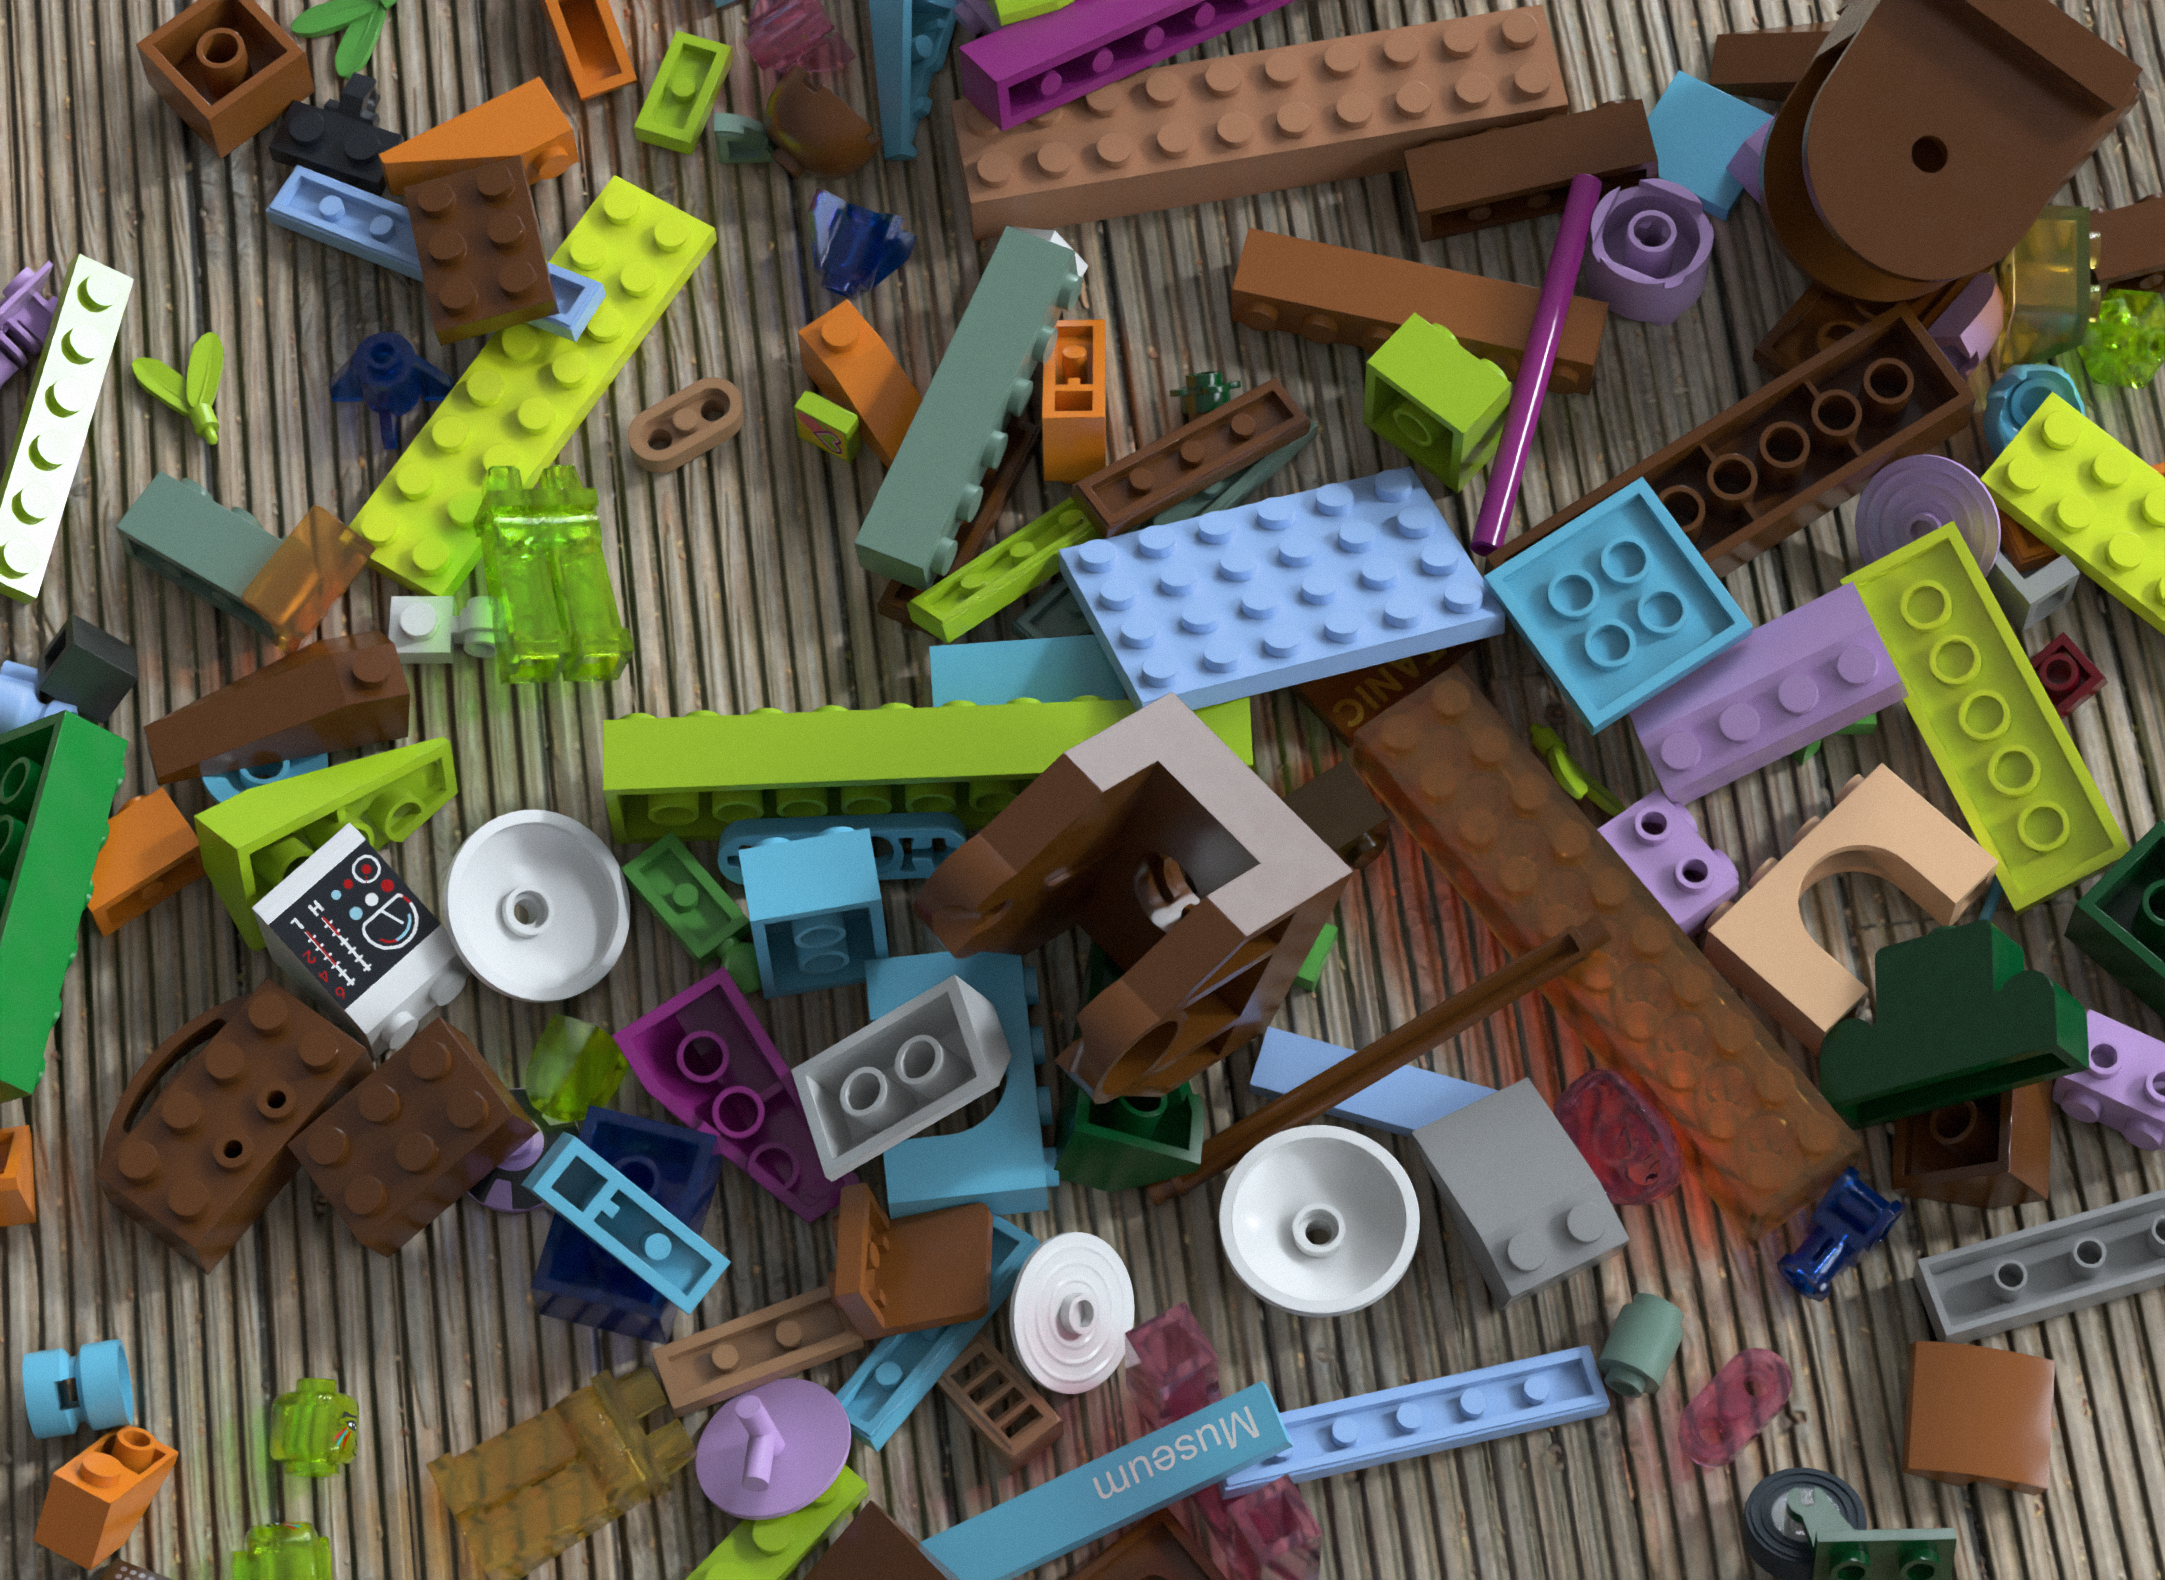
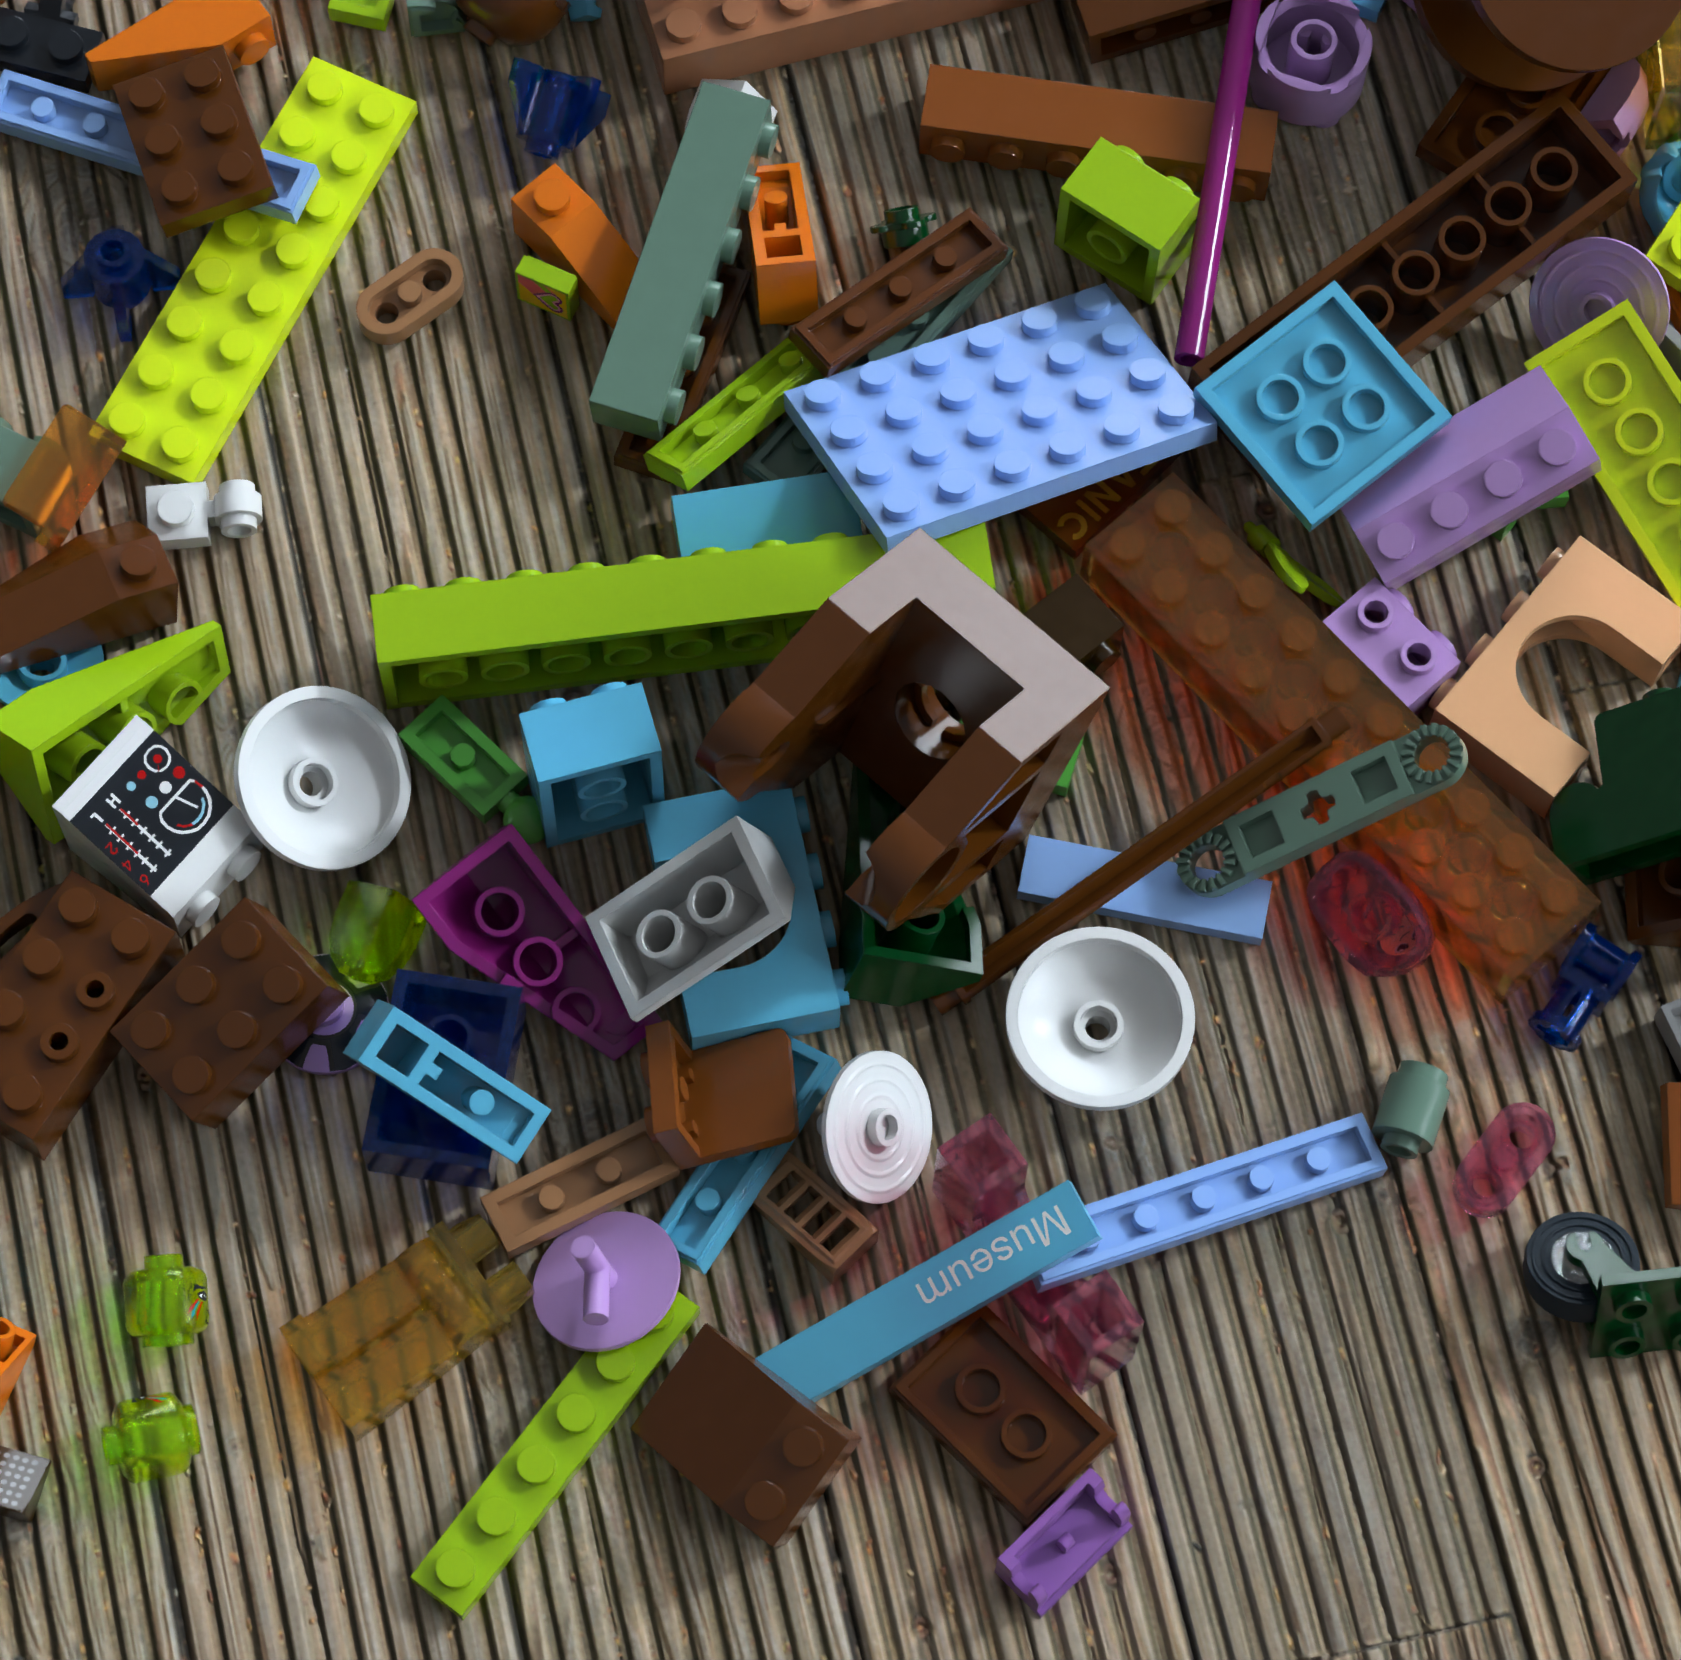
camera: 10 degrees left, 5 degrees up
(548, 579) = (296, 458): clear neon green hips -> none
(893, 827) = (655, 673): medium azure beam -> none
(1519, 1193) = (1283, 973): light grey slope -> none
(1615, 1009) = (1363, 792): none -> sand green piece

